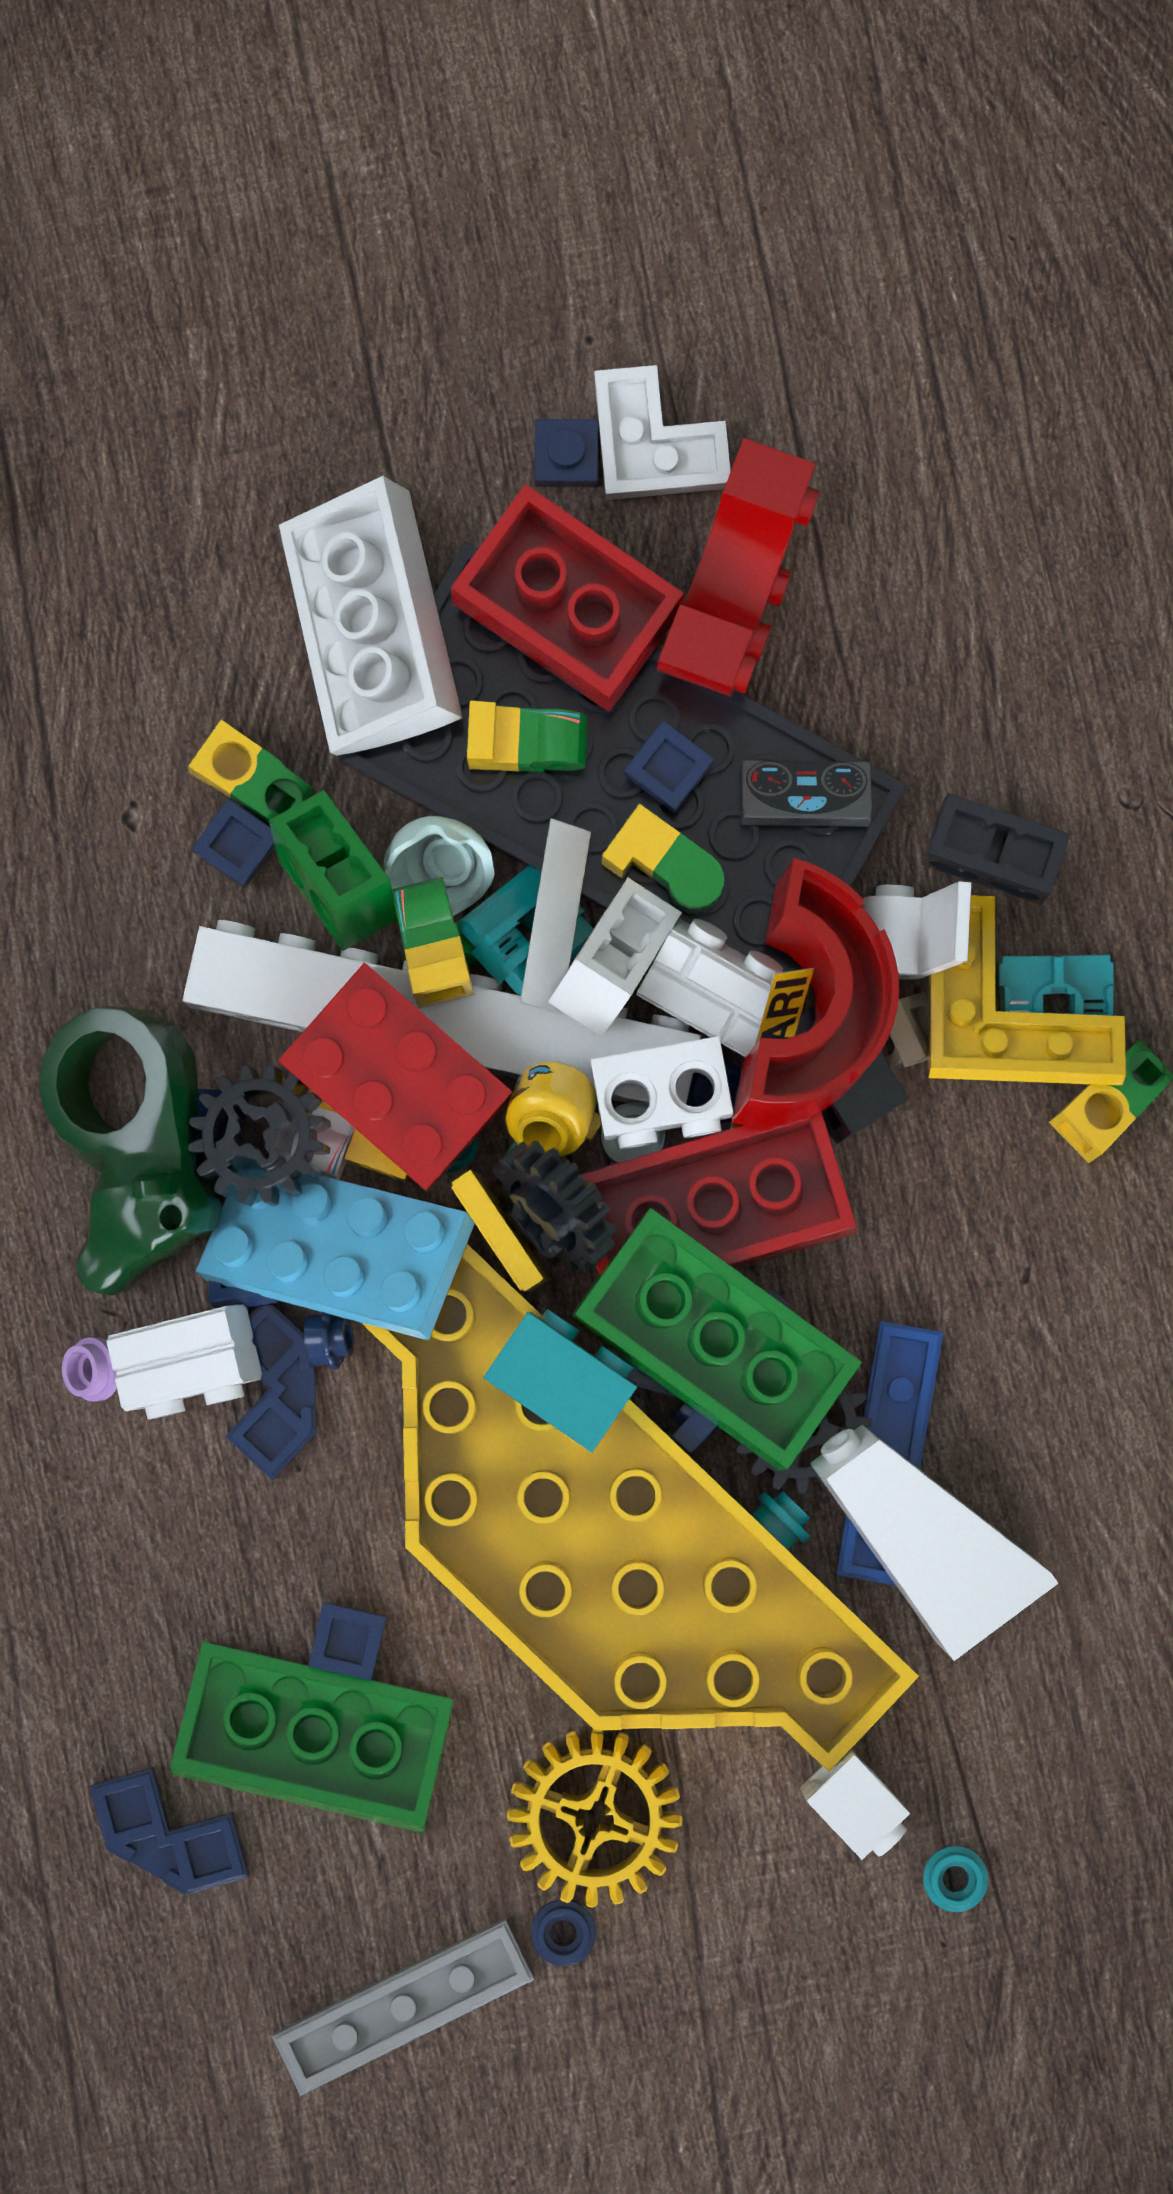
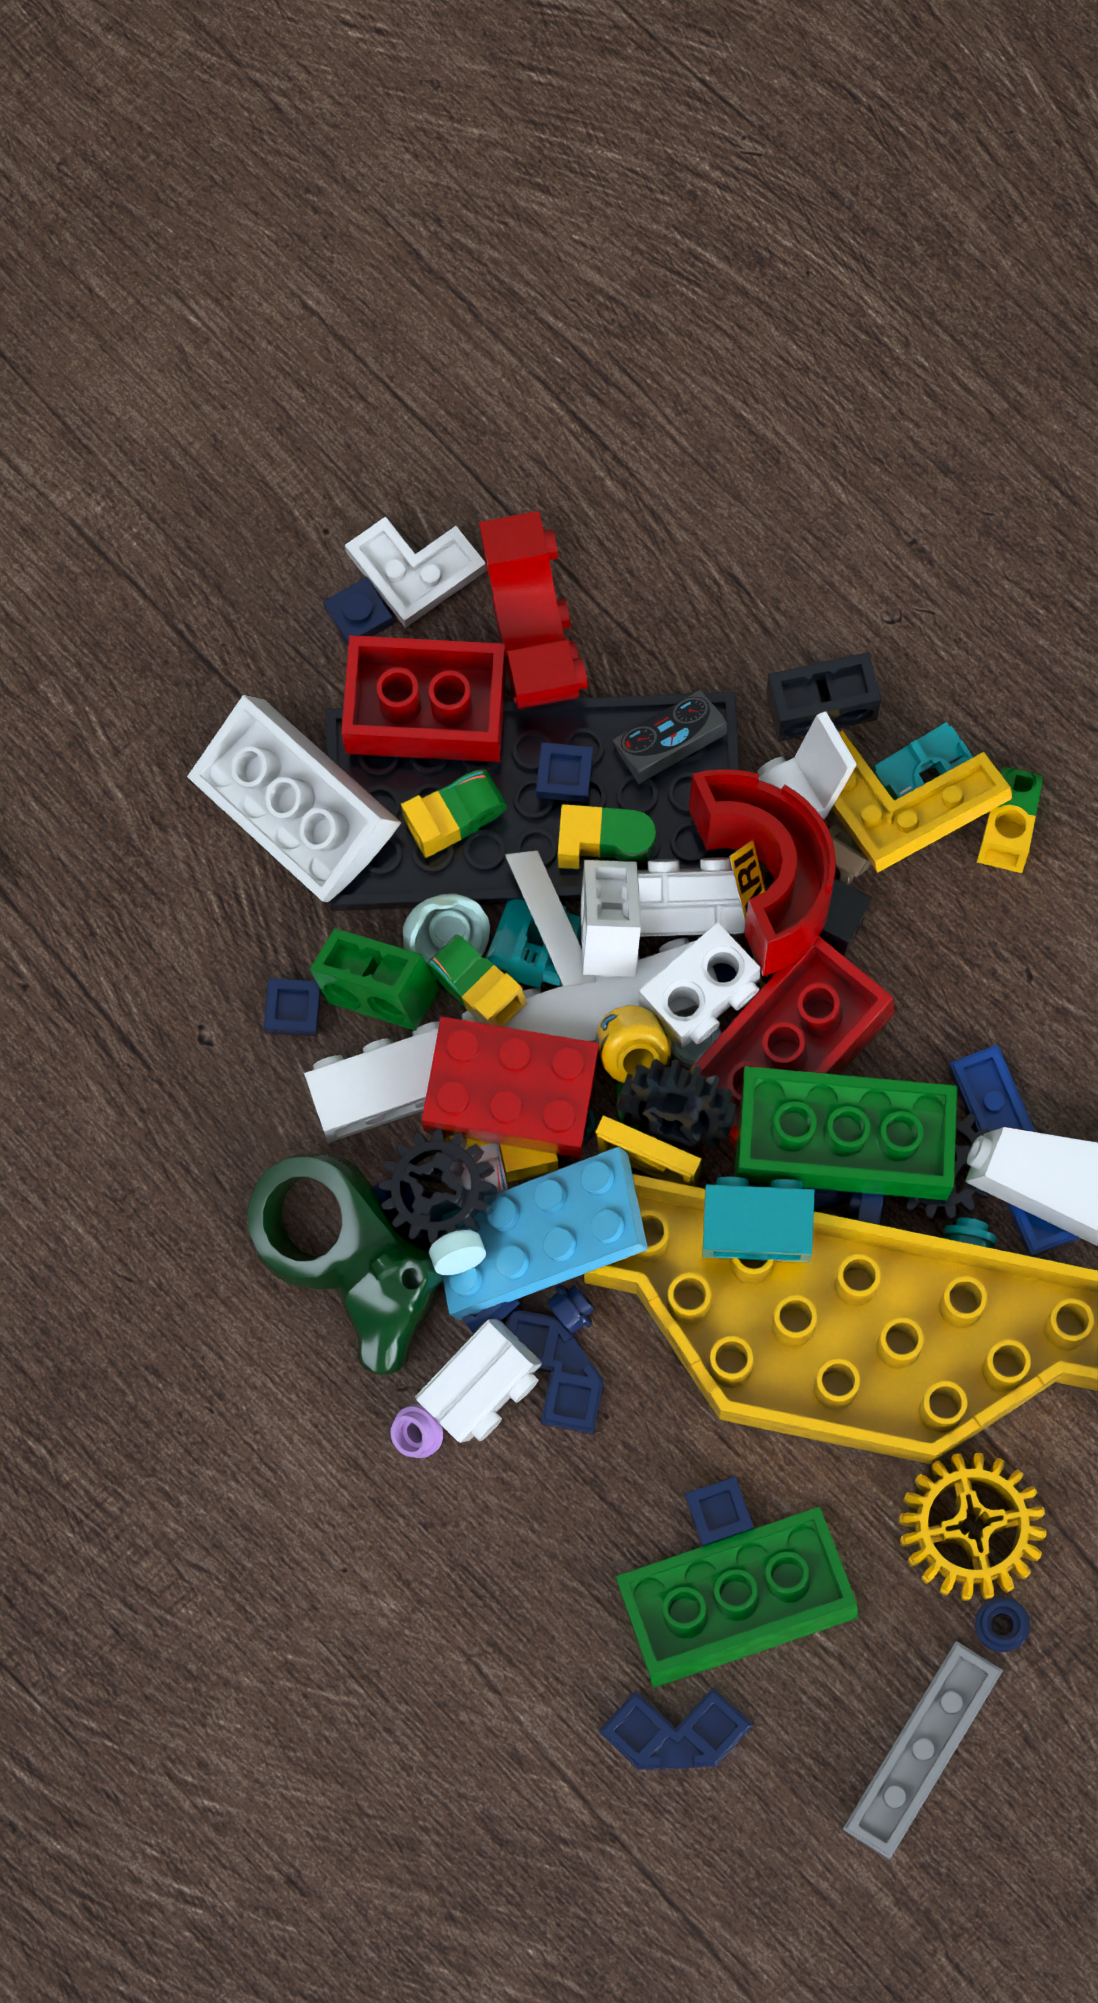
camera: 30 degrees left, 10 degrees down
(235, 1217) = (457, 1252): none -> light aqua tile
(248, 773) = (271, 953): leg -> none

